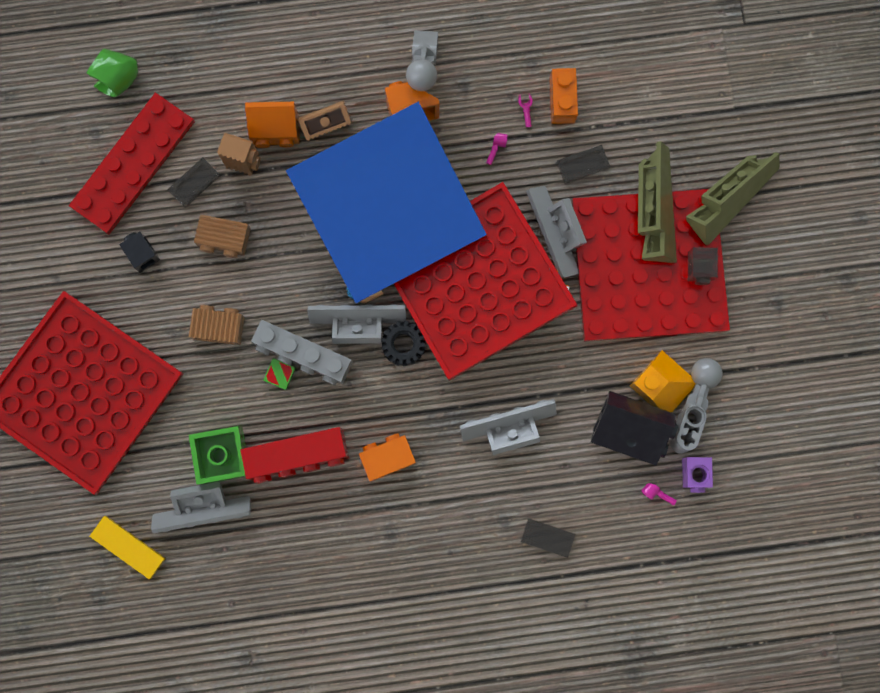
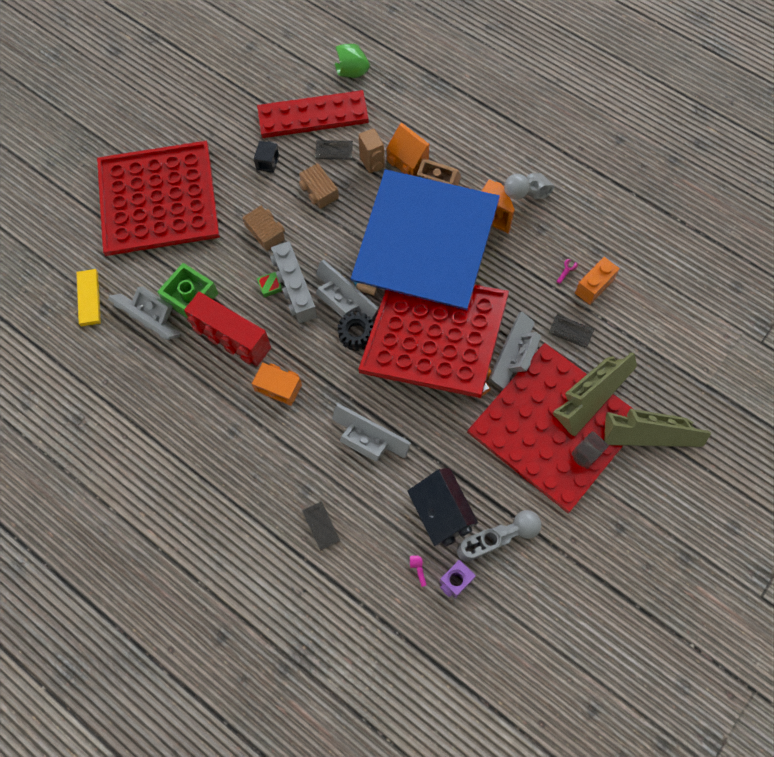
camera: 50 degrees right, 15 degrees down
(499, 140) = (531, 272): dark pink hand -> none
(663, 383) = (492, 502): light orange slope -> none

